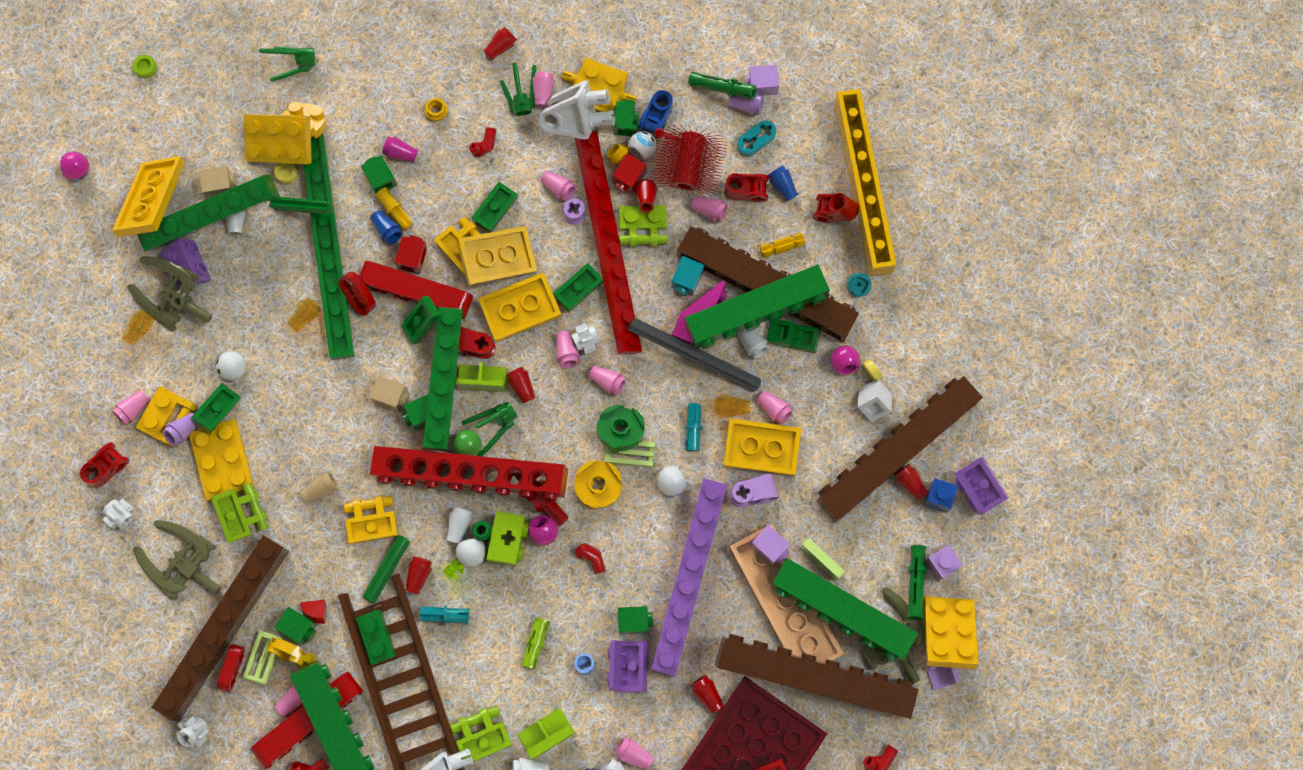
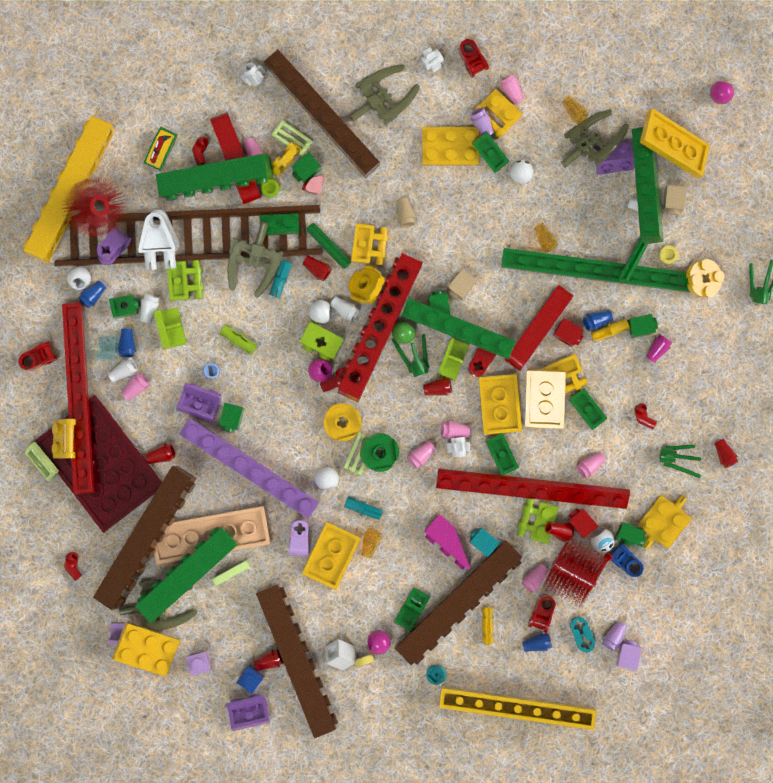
camera: 110 degrees right, 10 degrees up
(230, 667) = (291, 113): red beam -> none
(232, 516) = (404, 143): lime plate -> none
(277, 138) = (694, 255): yellow plate -> none
(336, 663) = (270, 189): none -> lime tile
(357, 293) = (548, 282): red beam -> none
(418, 653) = (256, 251): none -> olive bar
(420, 320) = (511, 324): green plate -> none
(425, 495) = (369, 293): none -> yellow plate
(436, 102) = (691, 386): yellow plate -> none
(452, 568) = (313, 295): clear neon green hinge -> none
(478, 527) = (330, 320): green pin -> none
(542, 87) = (676, 476): bright pink cone -> none
(576, 111) = (643, 498): white piece -> none
(577, 205) = (562, 475): lavender bush -> none
(592, 554) = (290, 402): red arm -> none
(617, 153) = (602, 519): yellow plate -> none
(696, 355) = (419, 527): dark grey axle -> none
(730, 87) = (629, 627): green pin -> none
(753, 343) = (416, 575): white cone -> none
(757, 306) = (438, 587): green brick -> none
(771, 545) = (251, 536): lavender brick -> none
(776, 408) = (359, 575): bright pink cone -> none
(835, 208) = (502, 677): red piece -> none
(916, 585) = (199, 641): green pin -> none

